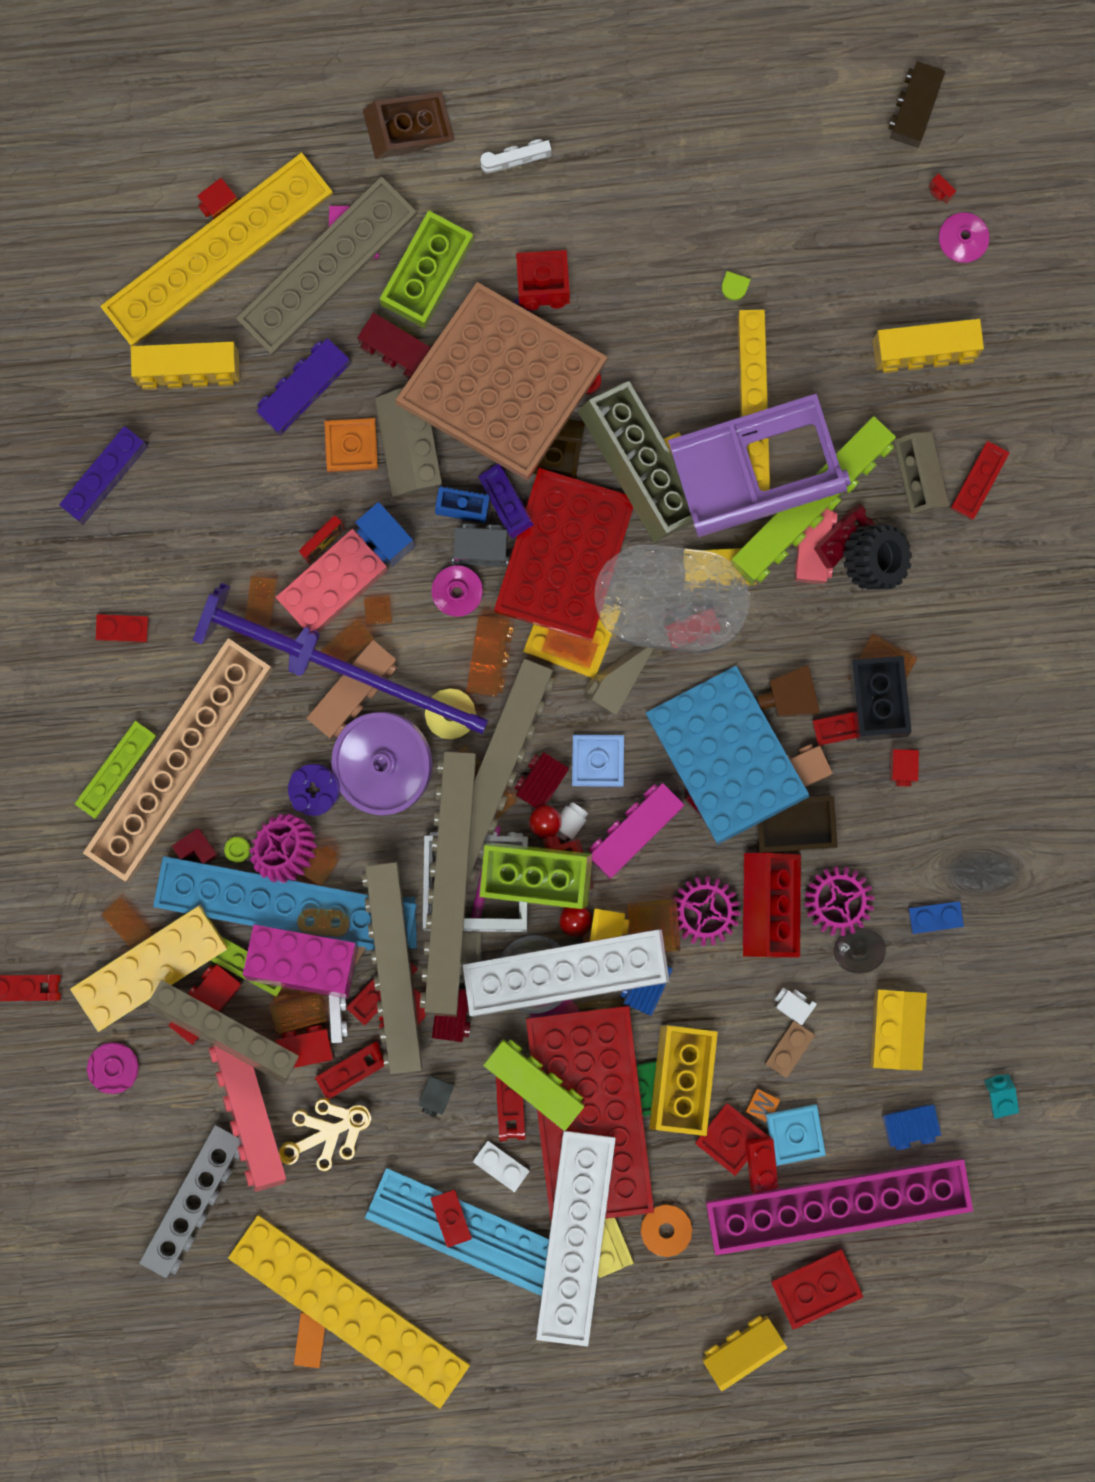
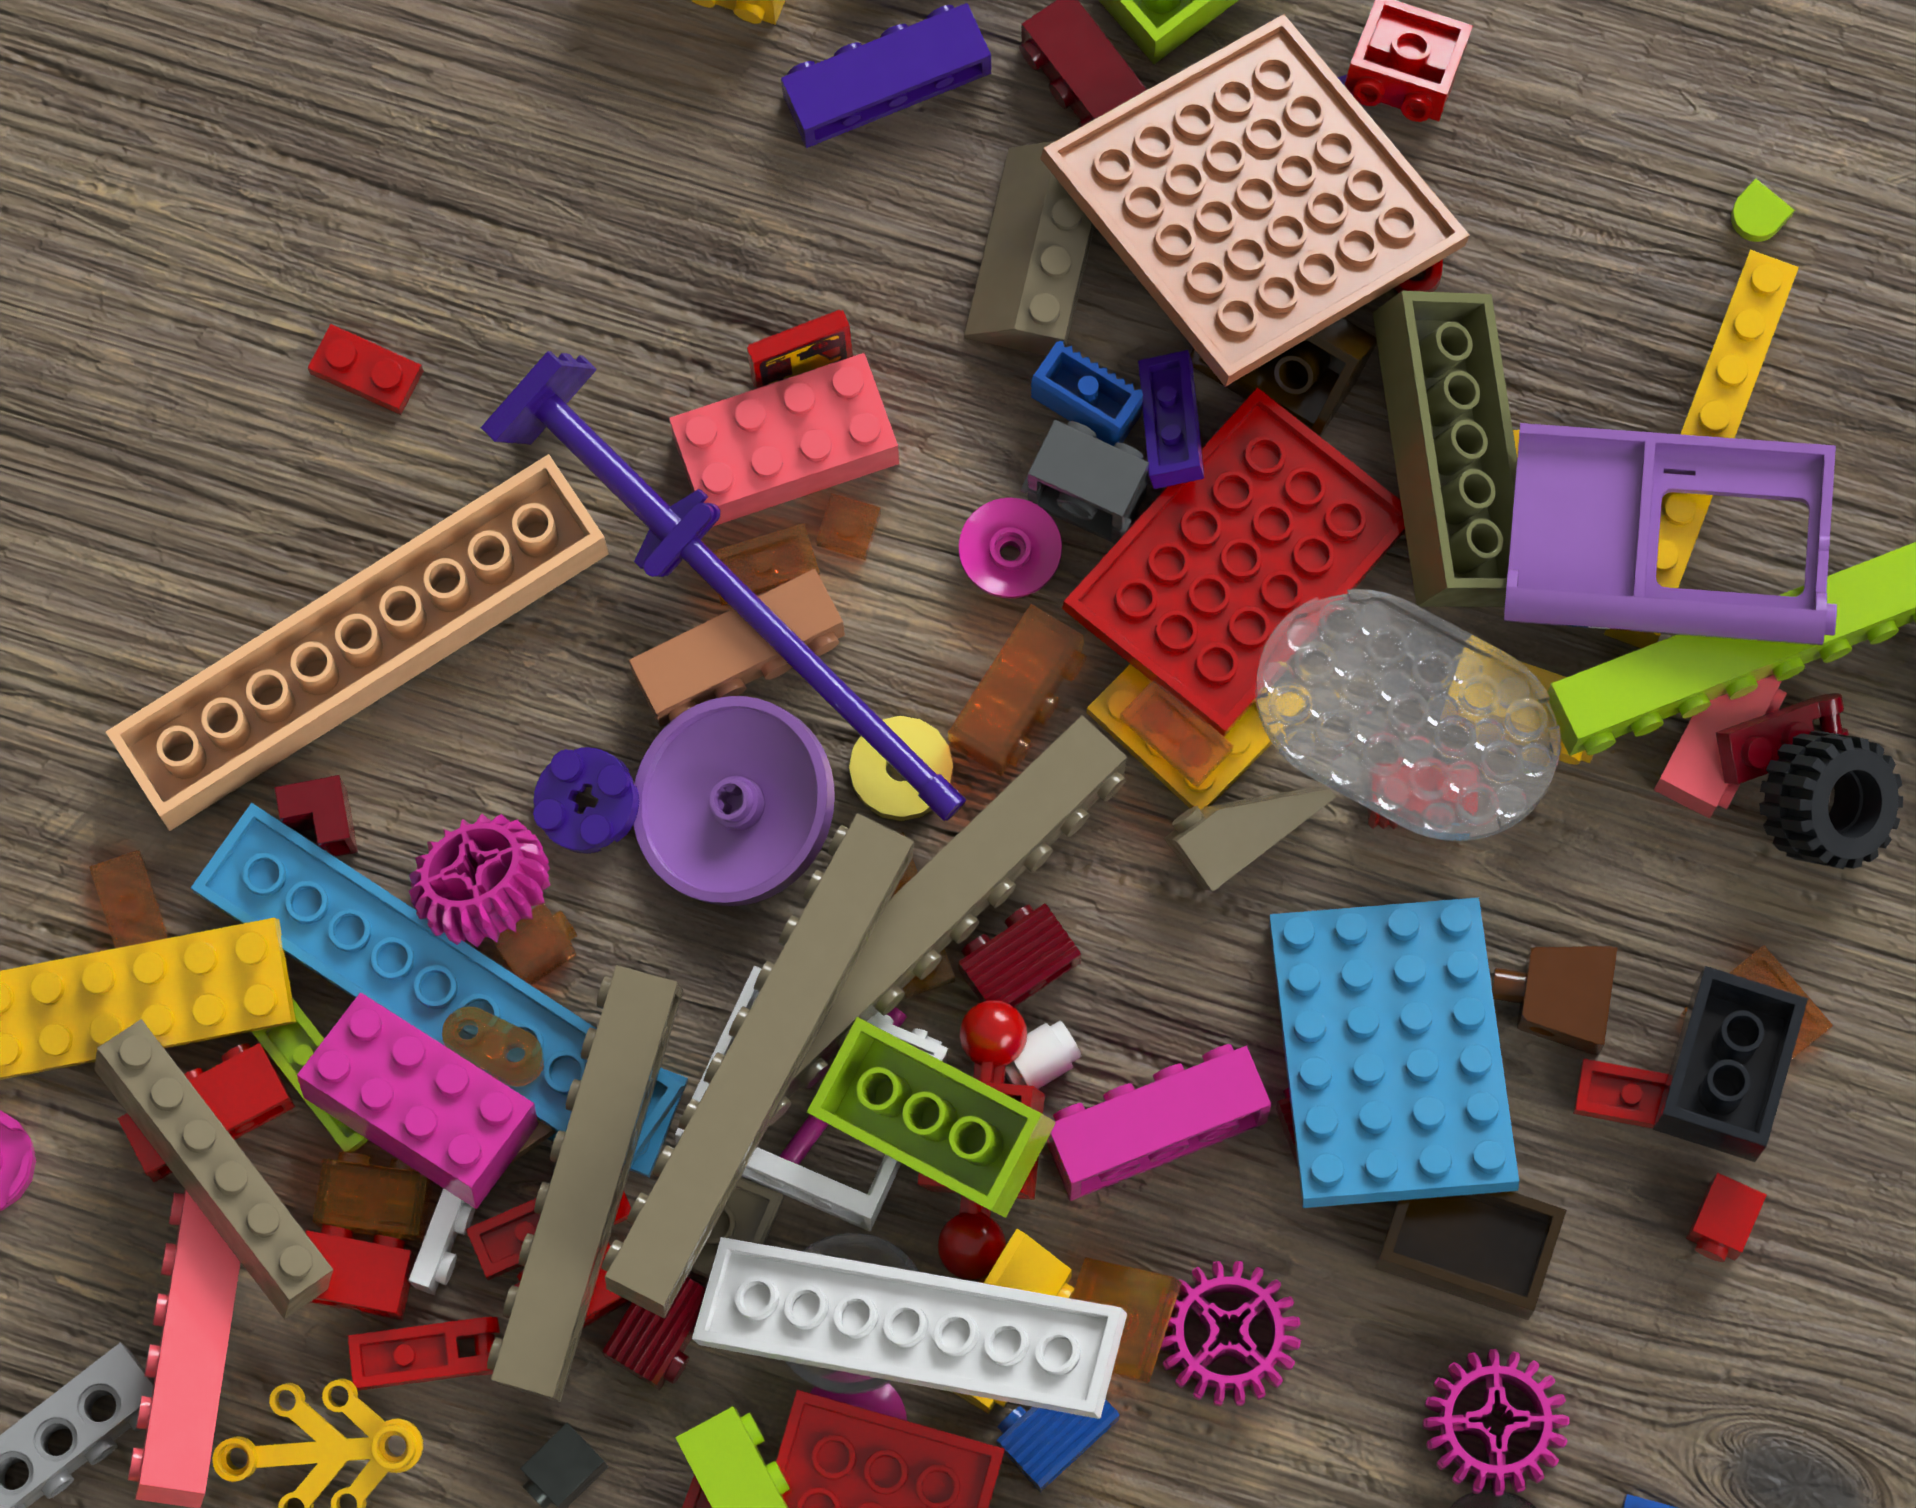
camera: 25 degrees right, 10 degrees down
(103, 475) = (454, 84): dark purple brick -> none
(115, 770) = (236, 615): lime plate -> none
(237, 849) = (394, 853): lime tile -> none
(261, 601) = (642, 418): clear orange plate -> none
(351, 445) = (928, 213): orange tile -> none
(385, 534) = (920, 389): blue brick -> none
(598, 761) = (1142, 968): light blue tile -> none
(771, 905) = (1362, 1376): red slope -> none
(811, 765) = (1546, 1141): nougat brick -> none

